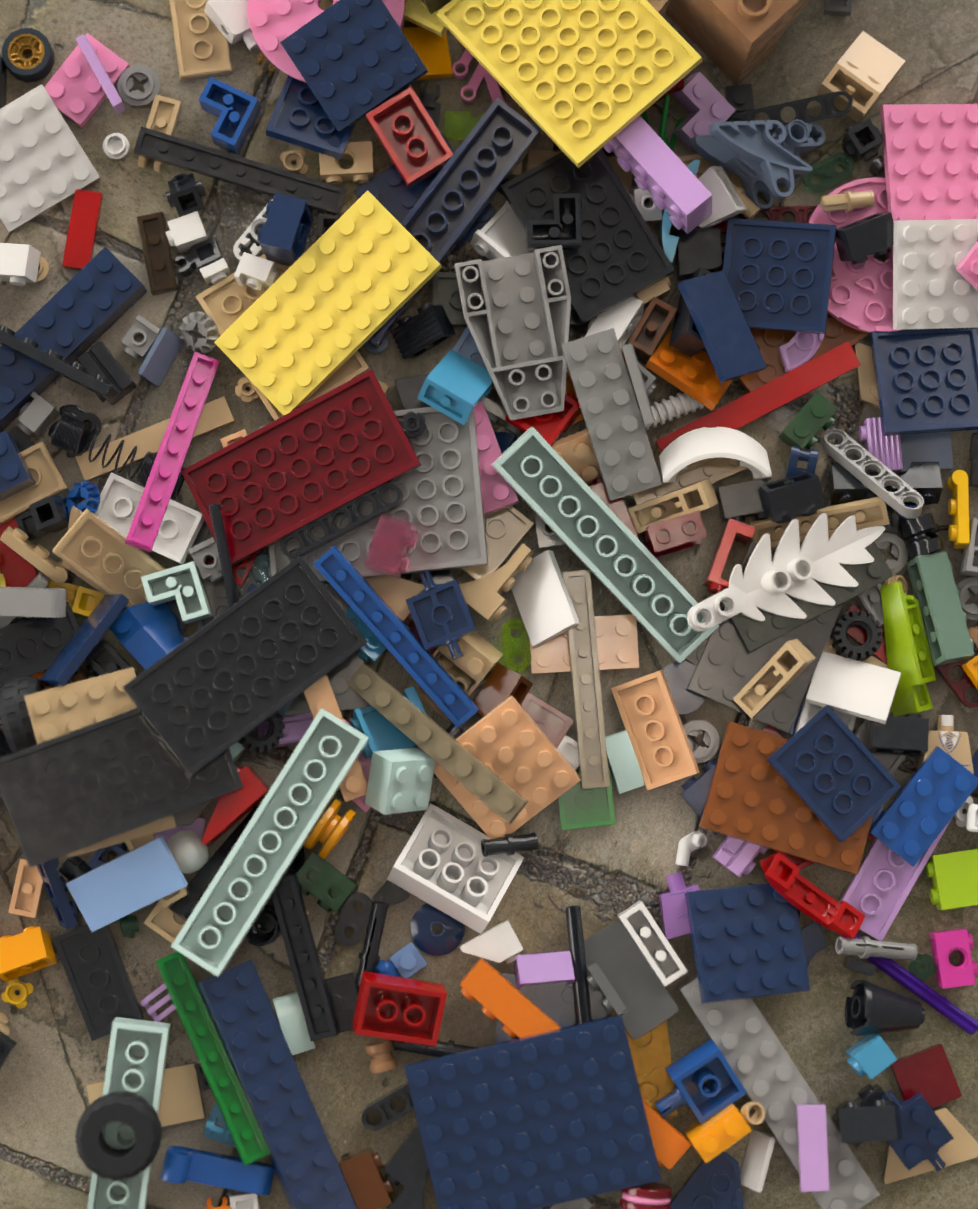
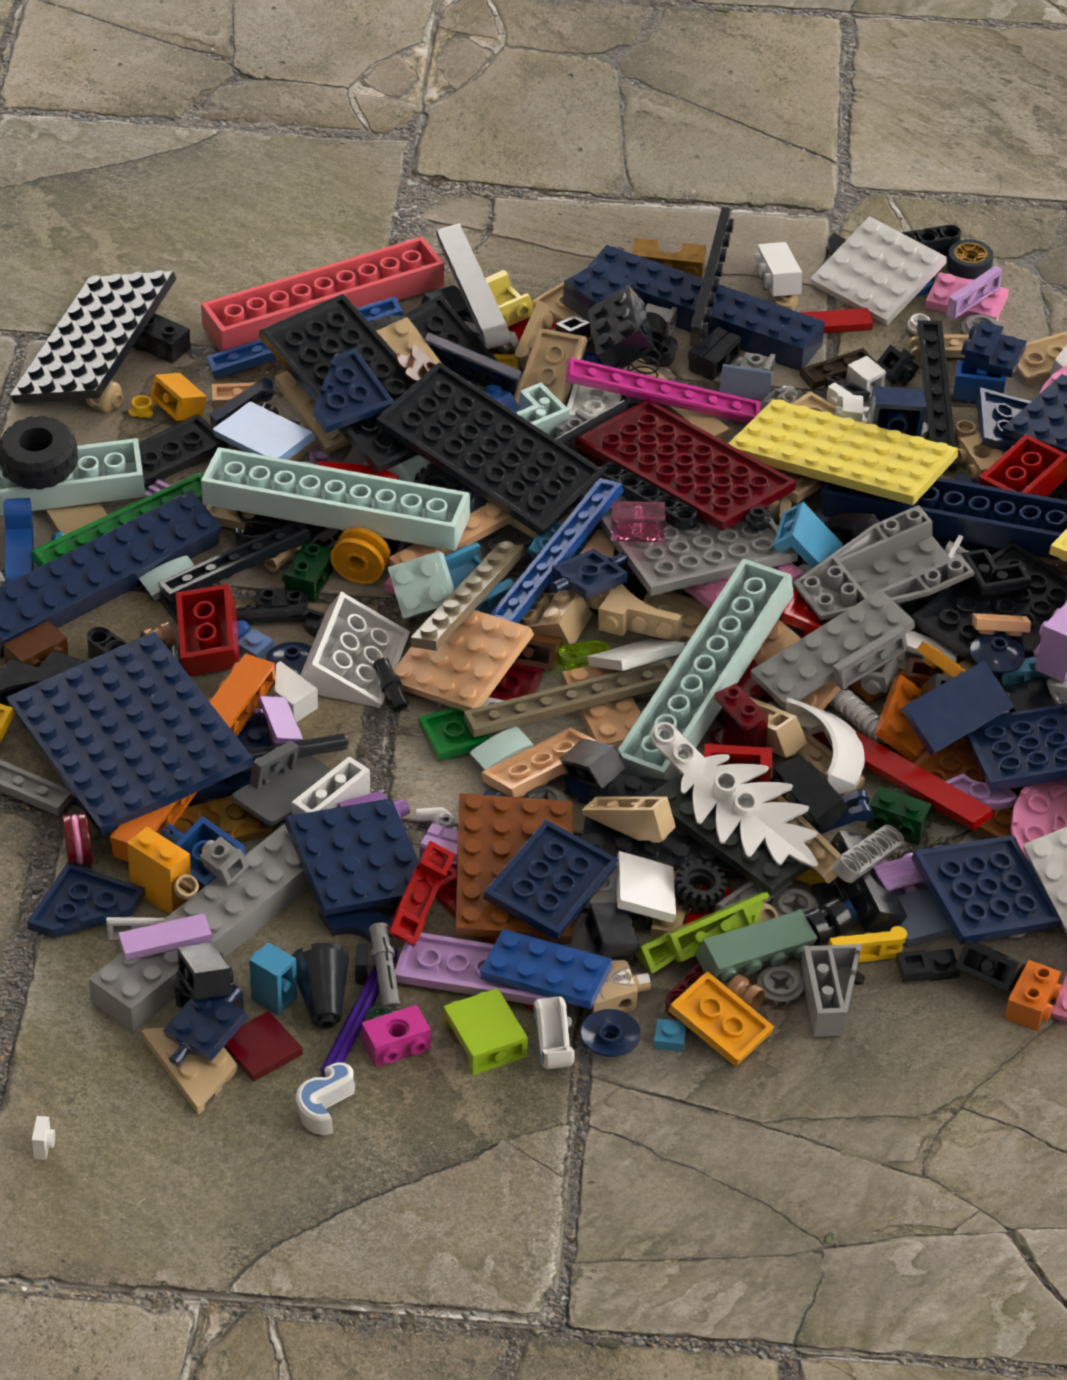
camera: 75 degrees right, 40 degrees down
(76, 467) = (621, 329): none -> black piece
(109, 709) = (416, 364): none -> plate
(145, 793) = (349, 393): none -> dark blue plate
(214, 93) = (992, 350): none -> dark blue plate
(624, 243) = (990, 623): none -> light nougat plate
(648, 271) = (999, 651): none -> dark blue dish
(658, 315) = (935, 658): none -> light orange plate
(694, 689) = (593, 763): none -> black brick
(739, 1065) = (223, 860): none -> light grey brick

